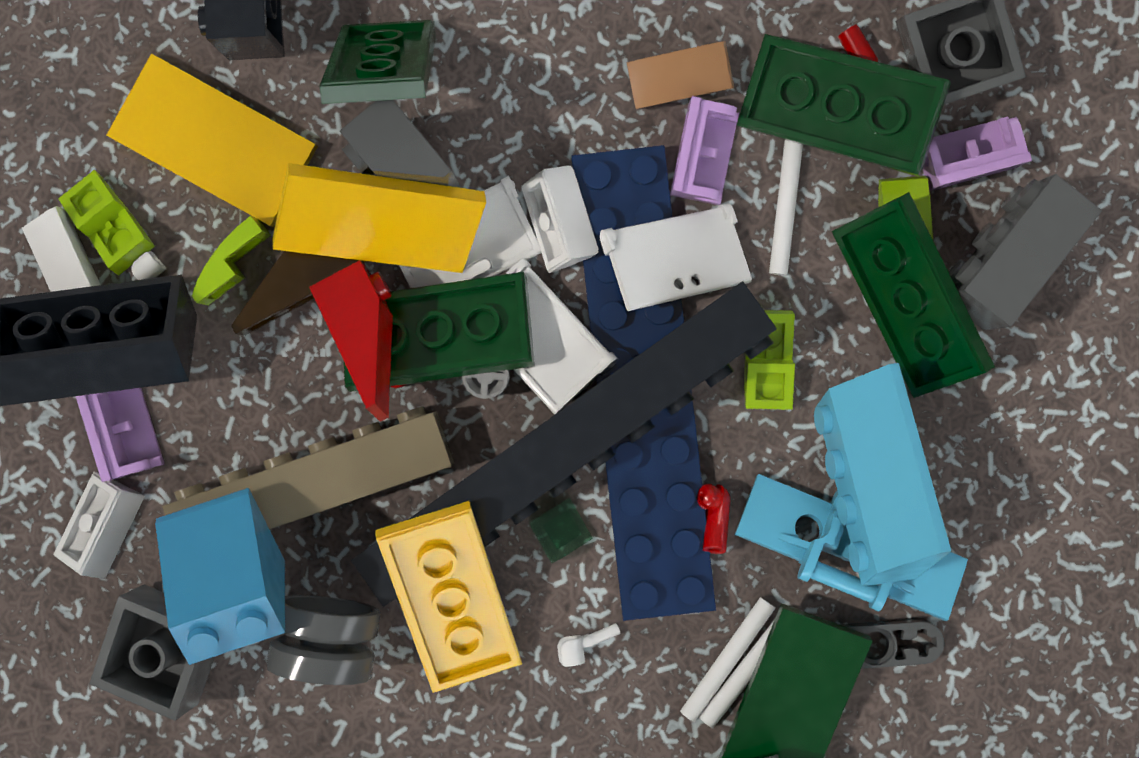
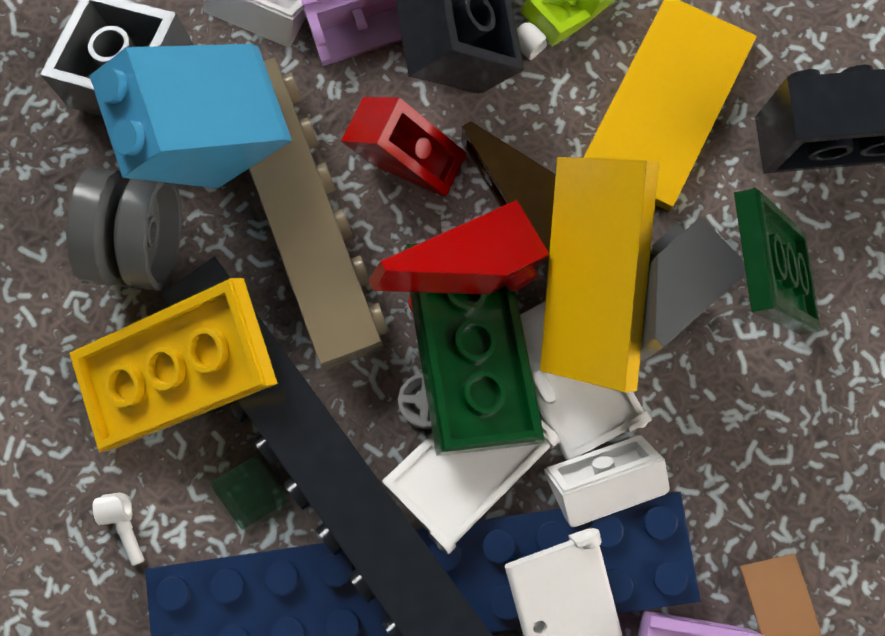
camera: 90 degrees right, 10 degrees down
(220, 271) = (529, 112): lime slope -> none
(247, 388) = (404, 143): none -> red slope

